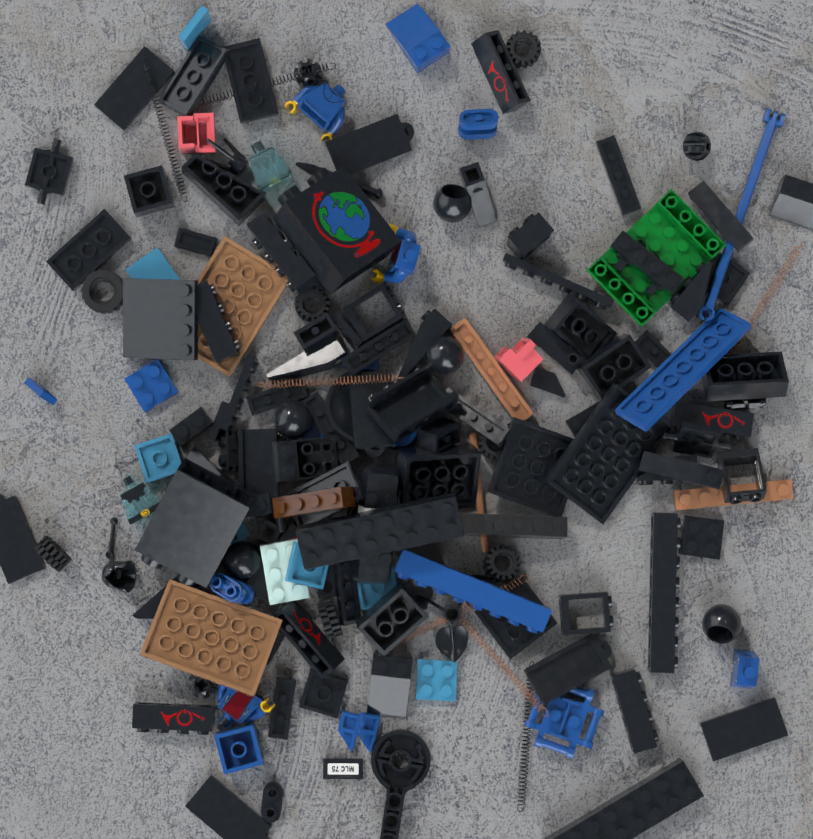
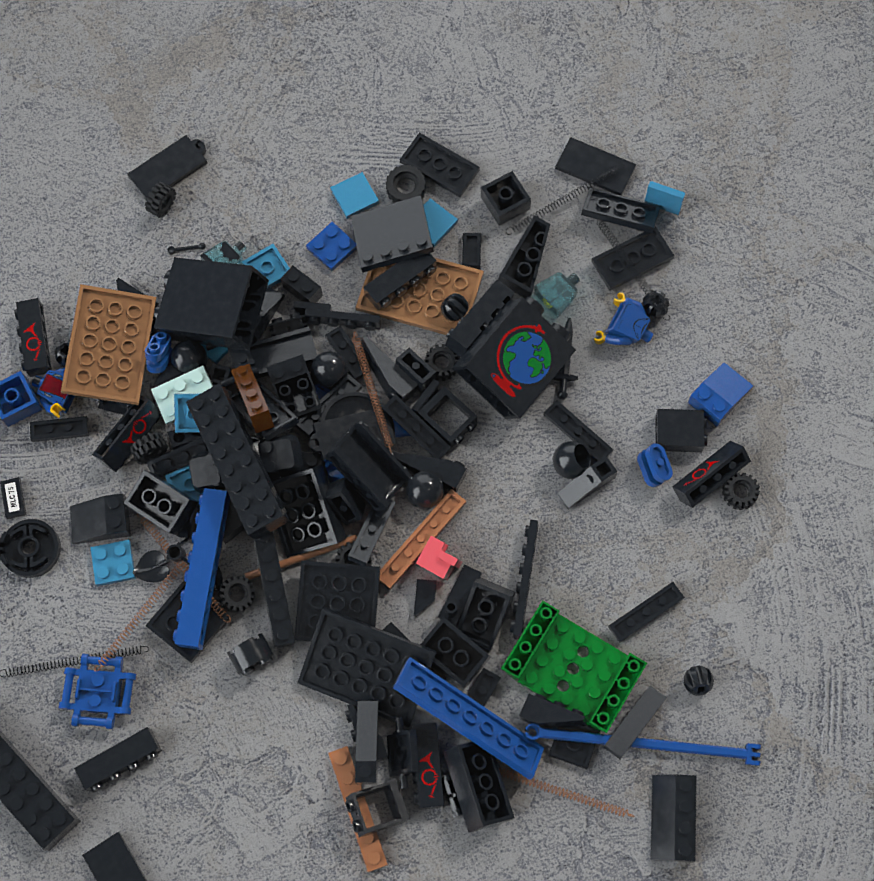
camera: 85 degrees right, 15 degrees down
(40, 391) = (302, 157): blue tile -> none
(49, 171) = (500, 116): black plate -> none
(98, 347) = (354, 195): none -> dark azure tile
(128, 575) = (151, 253): black hair -> none
(194, 133) = (569, 223): coral plate -> none
(236, 163) = (554, 264): black plant -> none
(261, 275) = (454, 307): none -> black piece
(323, 694) = (79, 464): black tile -> none
(347, 728) = (52, 494): blue tile -> none
(367, 729) = (54, 510): blue tile -> none
(370, 144) = (605, 375): black piece -> none
(402, 258) = (507, 428): blue torso -> none
(421, 188) = (577, 430): none -> black plate
(447, 88) = (680, 430): none -> black brick
(529, 236) = (560, 538): black brick -> none
(565, 616) = (198, 668): black window -> none
(567, 562) = (250, 654): none -> black brick
(569, 668) = (147, 683): black piece -> none
(635, 254) = (559, 674): black hinge -> none
(663, 593) = (241, 759): black brick -> none
(701, 537) = (307, 787): black plate -> none
(721, 623) = (222, 825): black helmet -> none
(744, 669) = (182, 862): blue torso -> none

